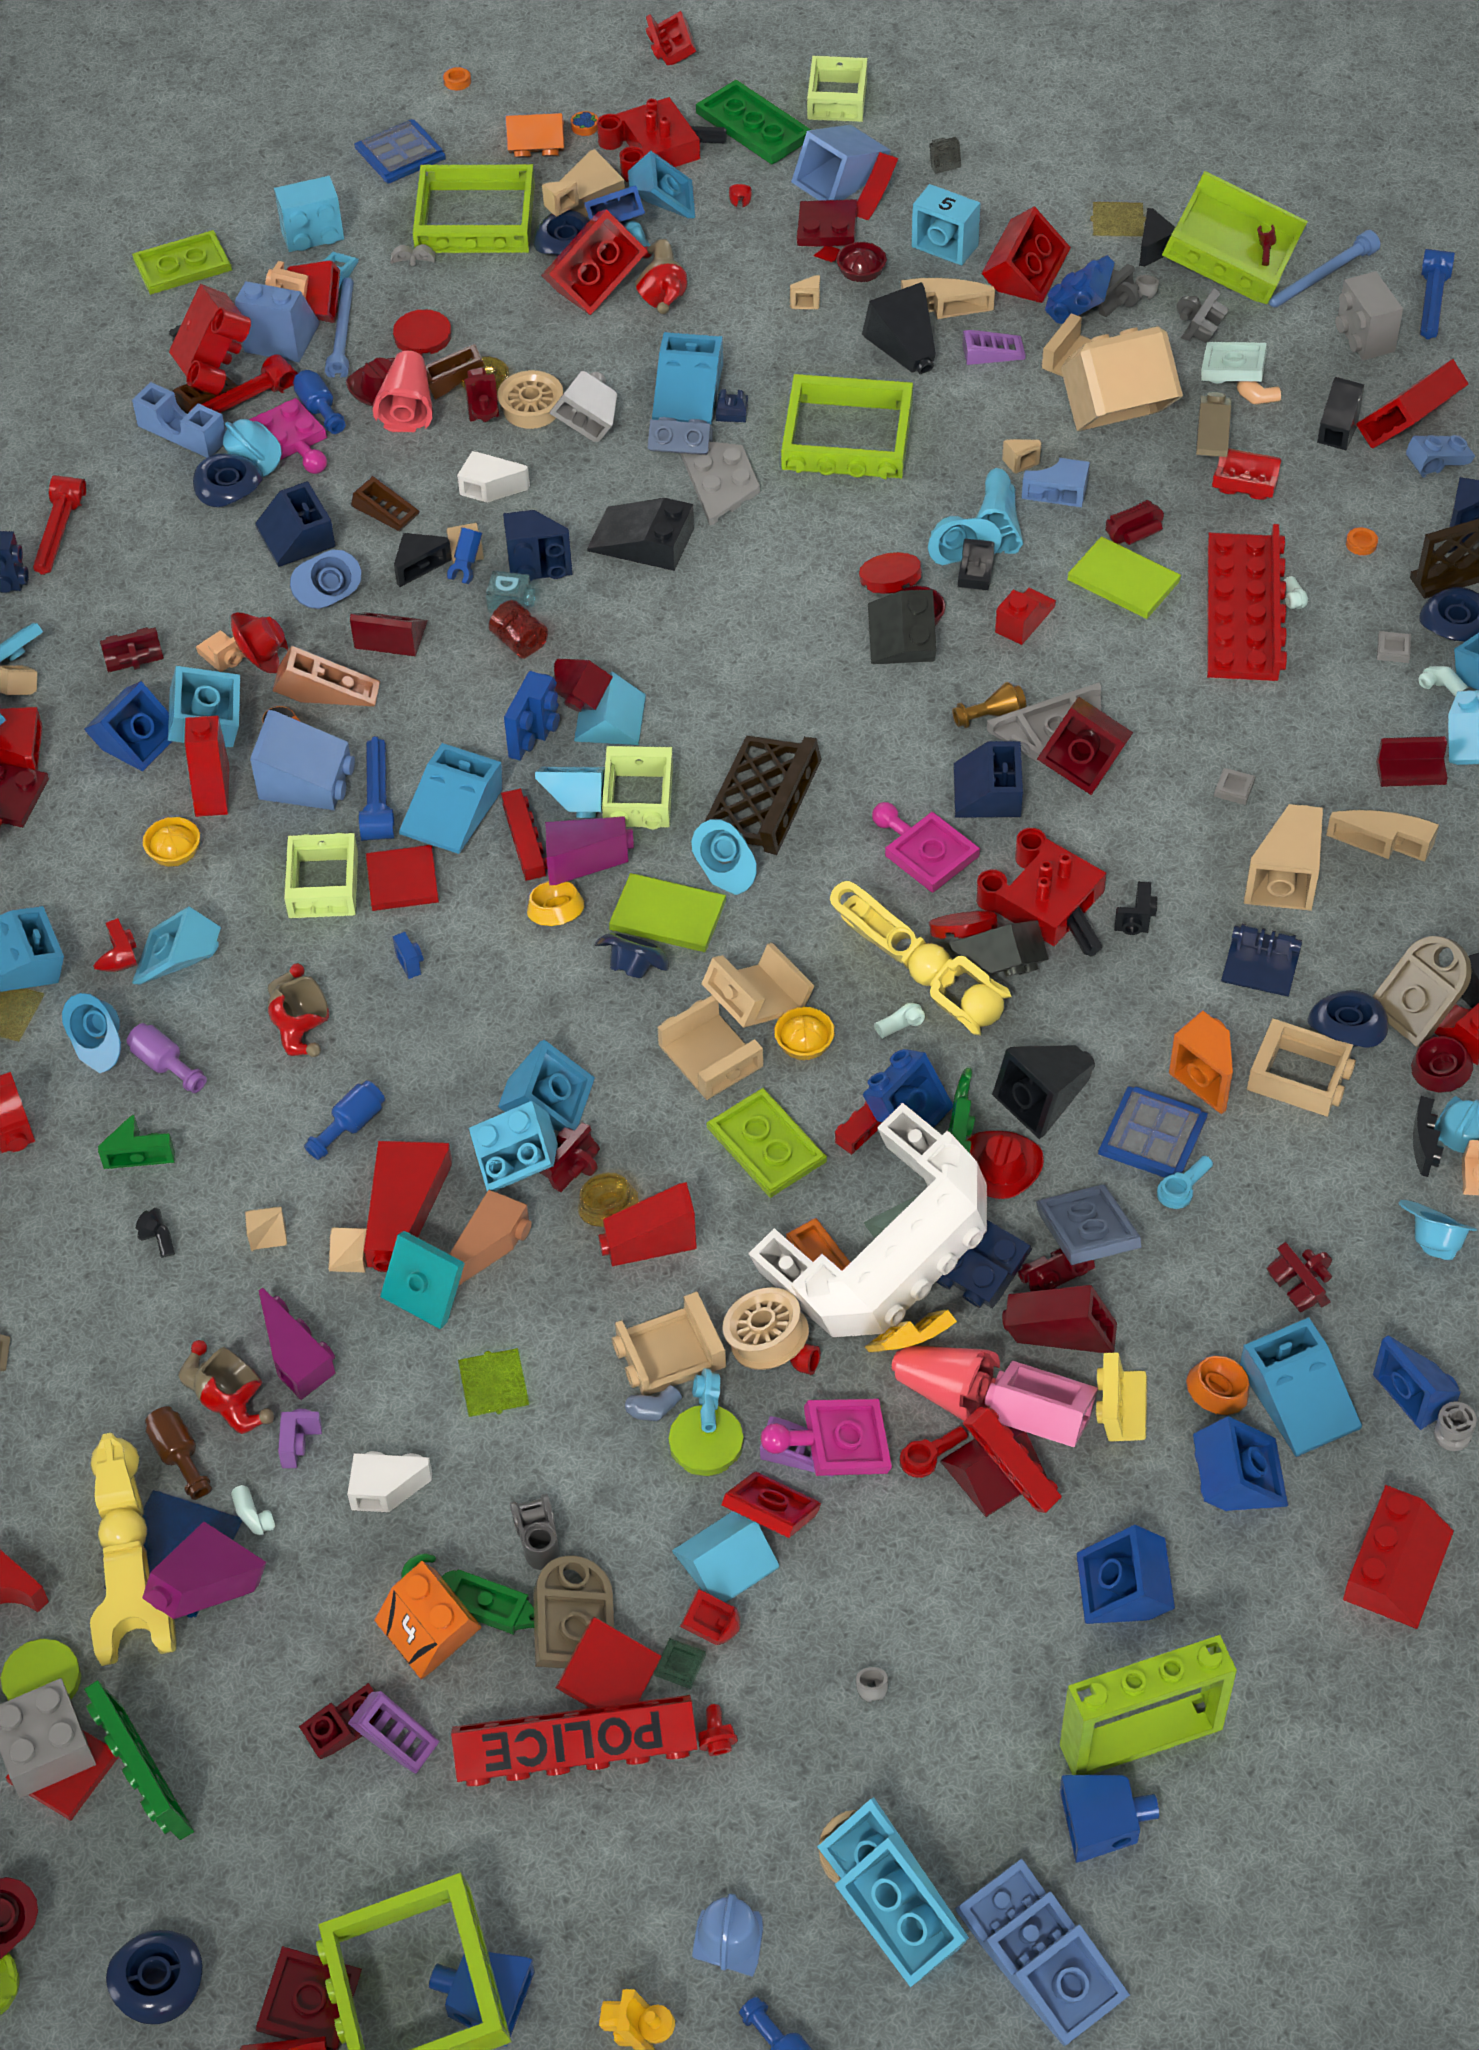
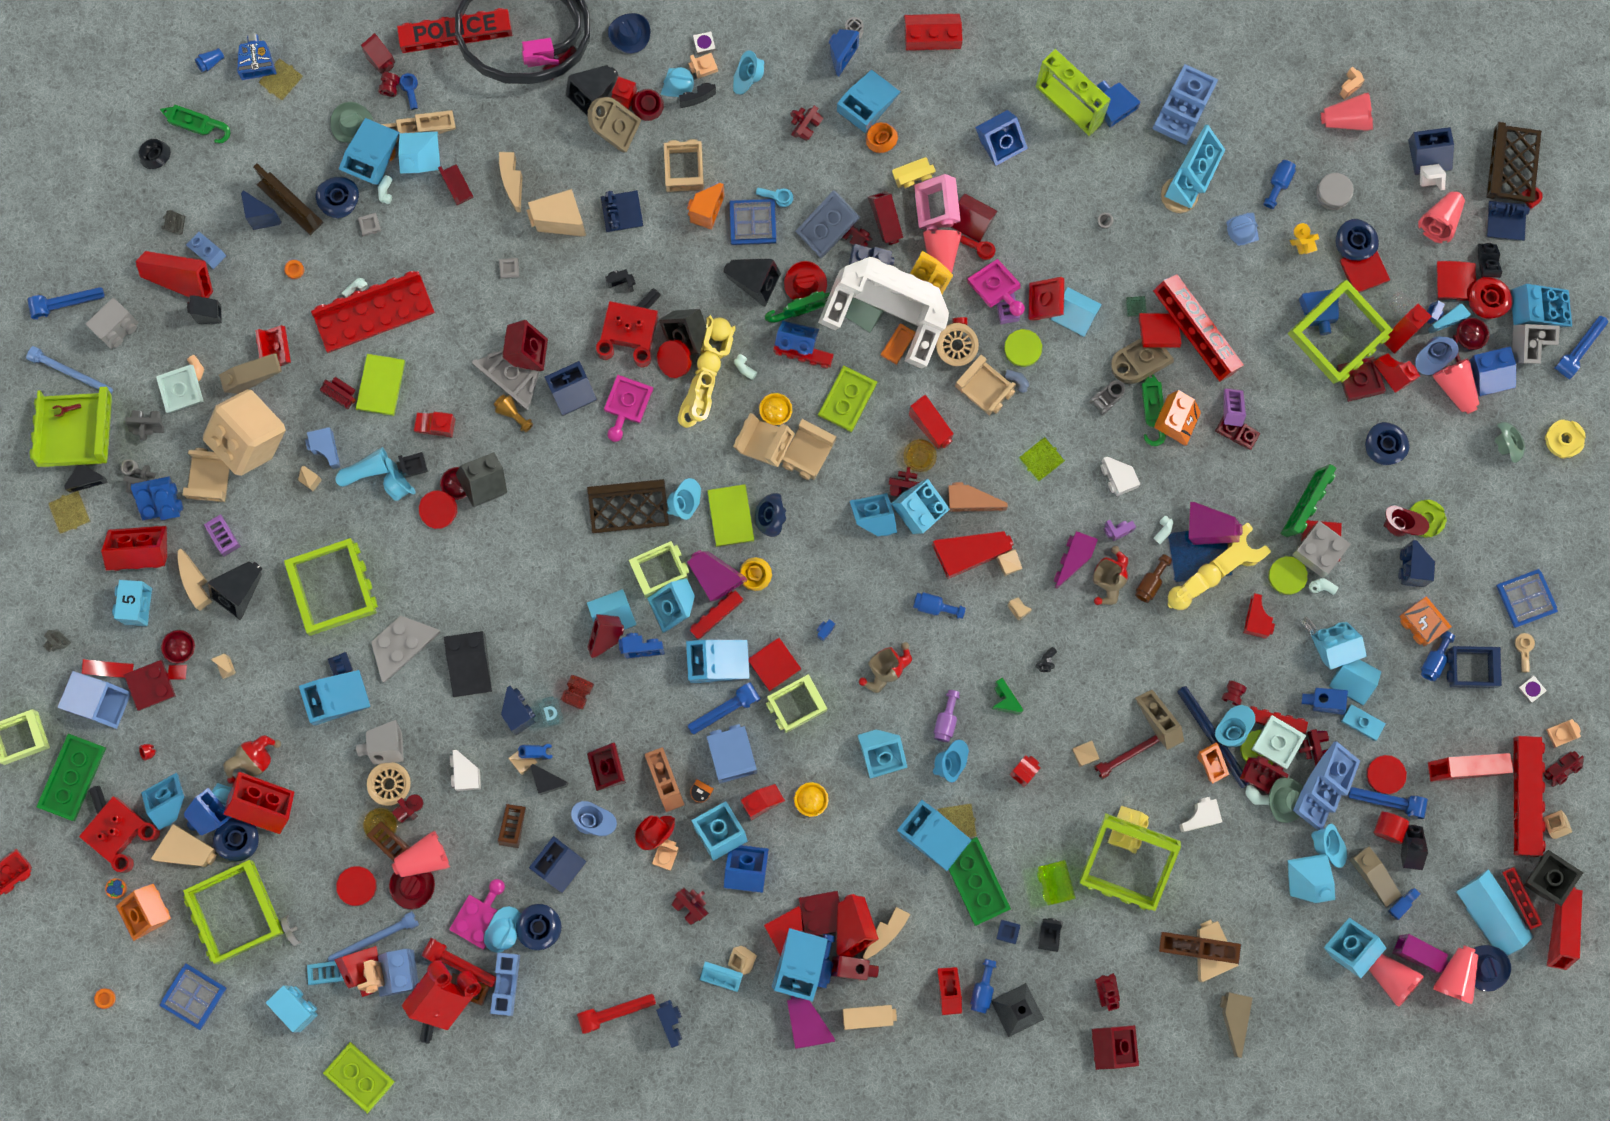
camera: 120 degrees left, 25 degrees up
(121, 955) = (889, 783): red plate -> none
(319, 399) = (443, 915): blue piece -> none
(422, 1279) = (1013, 512): teal plate -> none
(560, 196) = (213, 849): tan slope -> none
(679, 437) = (383, 678): sand blue bracket -> none
(707, 1389) = (999, 357): medium azure plate -> none
(711, 1618) = (1111, 300): red plate -> none
(717, 1737) = (1164, 271): red plate -> none
(1012, 1459) = (974, 201): red piece -> none
(1239, 1467) = (922, 111): blue slope -> none
(1350, 1018) = (645, 153): dark blue hat -> none

